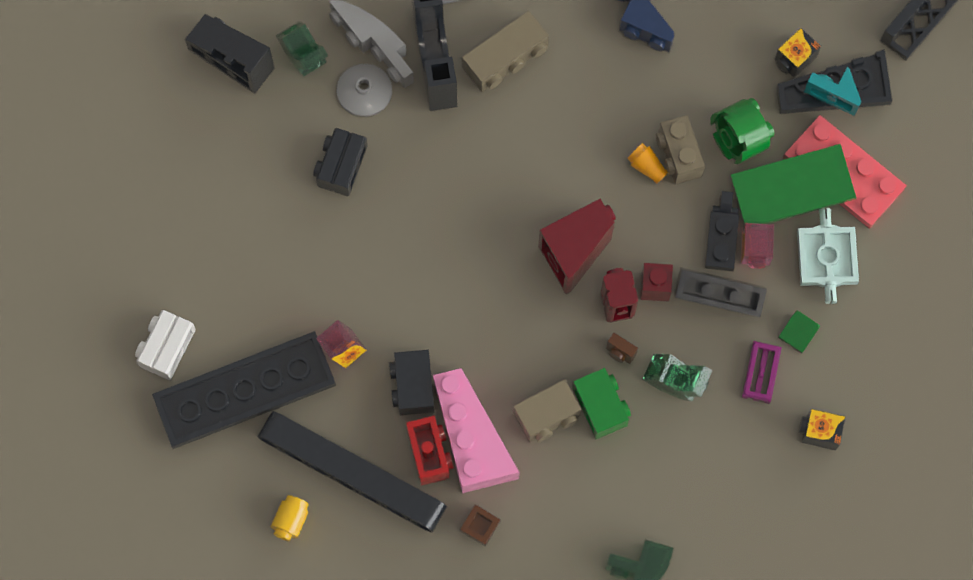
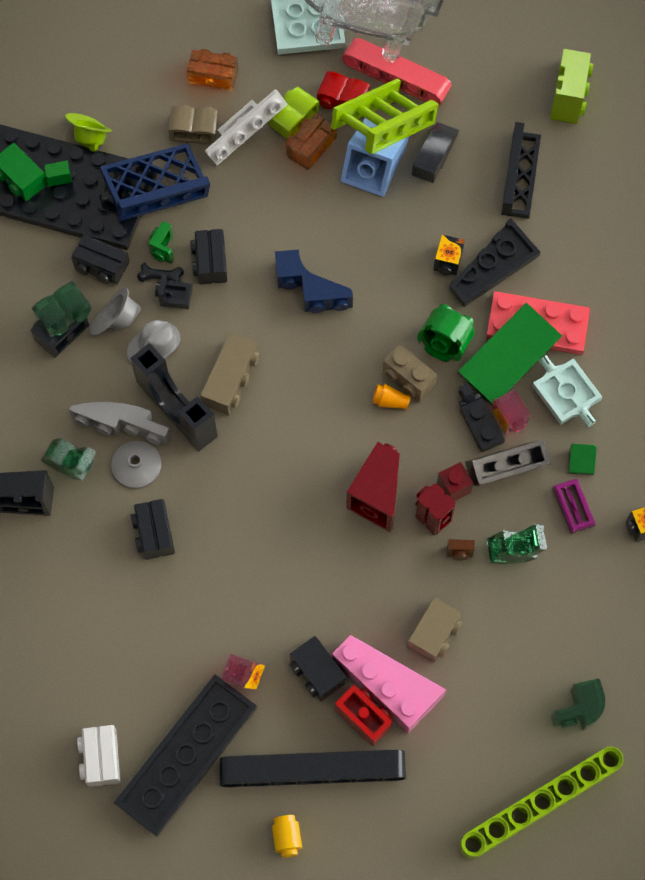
camera: 30 degrees left, 5 degrees down
(480, 525) = (439, 750): reddish brown plate -> none
(601, 403) = (472, 599): green brick -> none
(841, 95) = (502, 267): teal slope -> none

